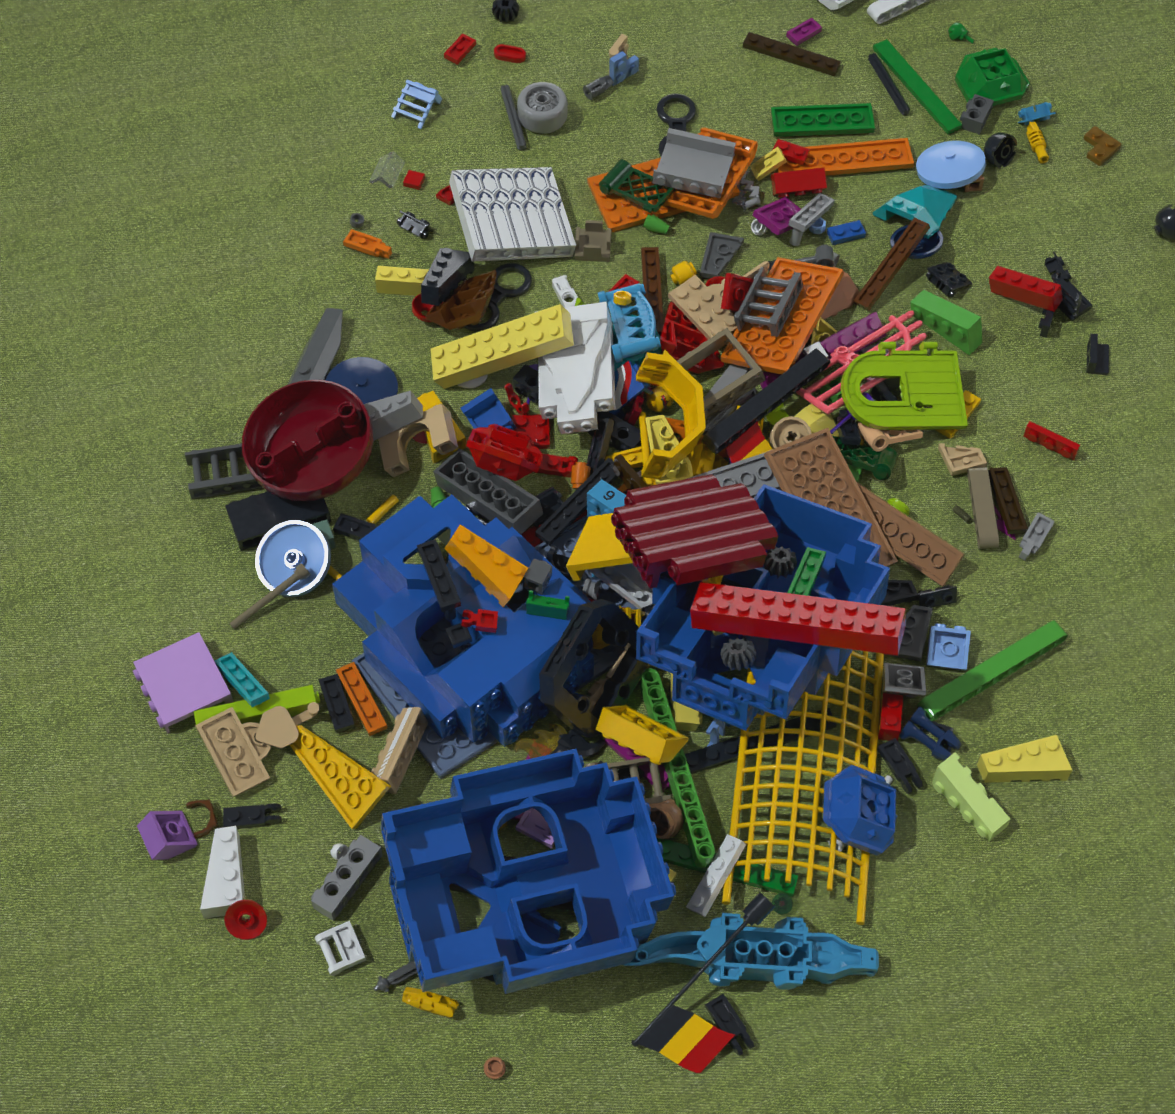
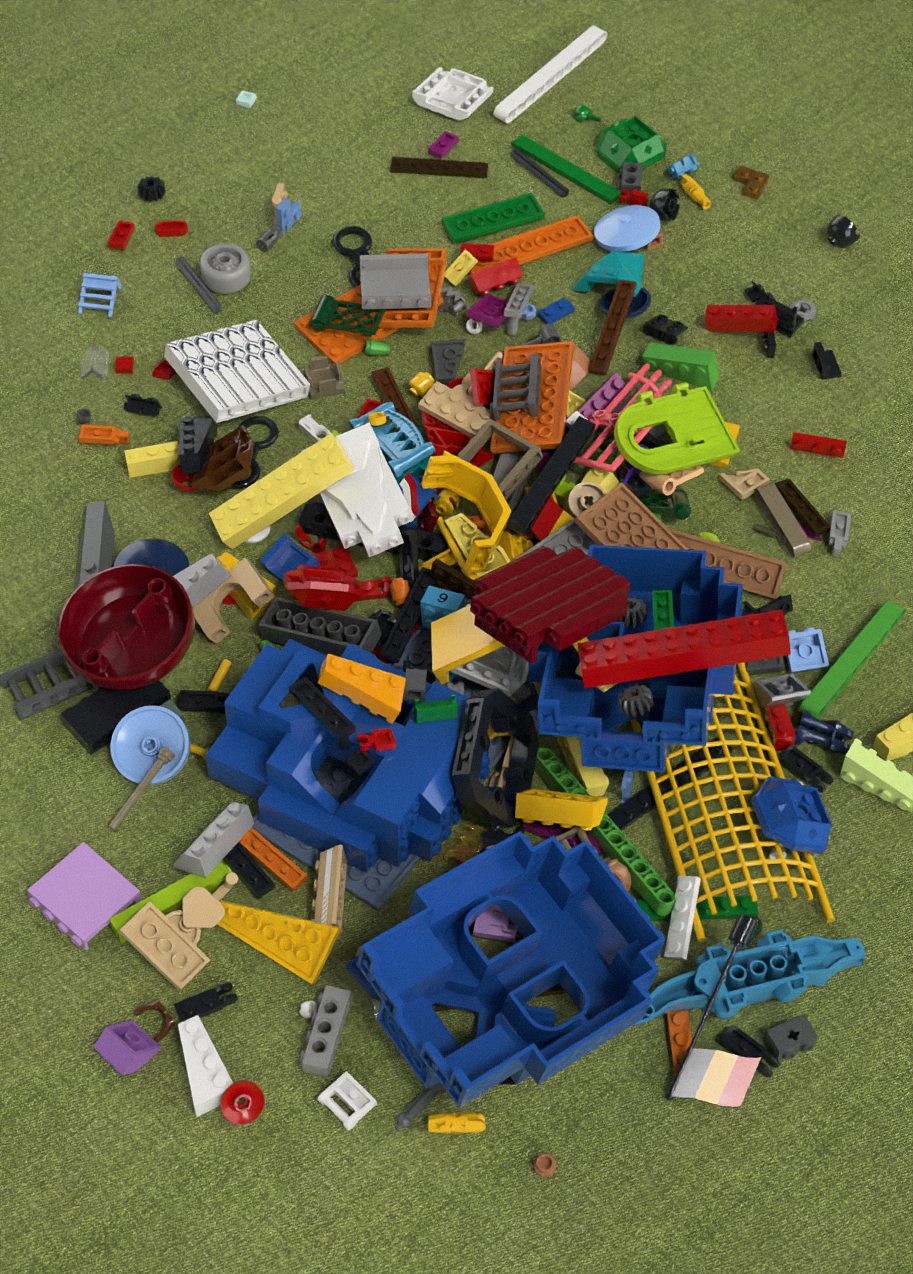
camera: 20 degrees left, 5 degrees down
(242, 679) = (147, 874): teal plate -> none
(316, 667) = (216, 840): none -> light grey slope
(669, 987) = (679, 1036): none -> orange plate
(784, 1022) = (782, 1037): none -> dark grey brick
(973, 134) = (635, 197): none -> red plate
(1102, 293) = (807, 307): none -> light grey gear

